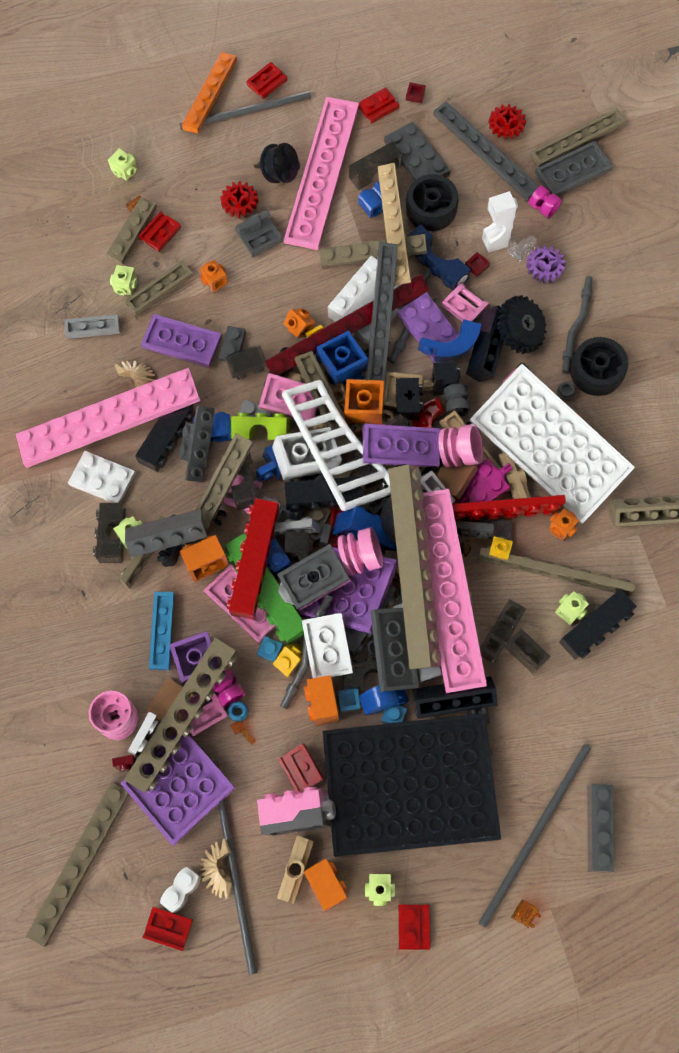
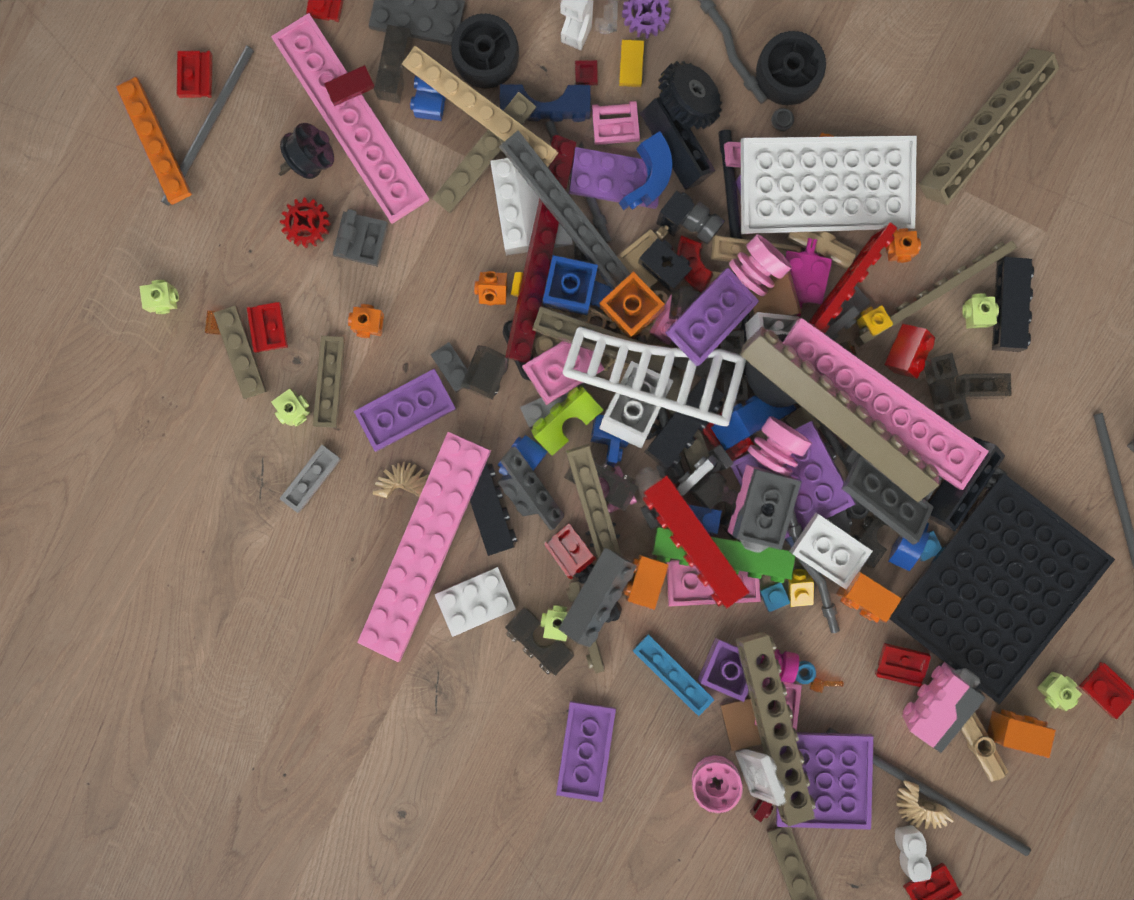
camera: 50 degrees left, 15 degrees up
(64, 621) = (585, 751): none -> medium lavender plate
(182, 499) = (570, 551): none -> plate
(338, 153) = (349, 85): none -> dark red tile
(349, 700) = (883, 572): dark azure plate -> none
(503, 586) = (910, 351): none -> red brick
(509, 283) = (631, 63): none -> yellow tile

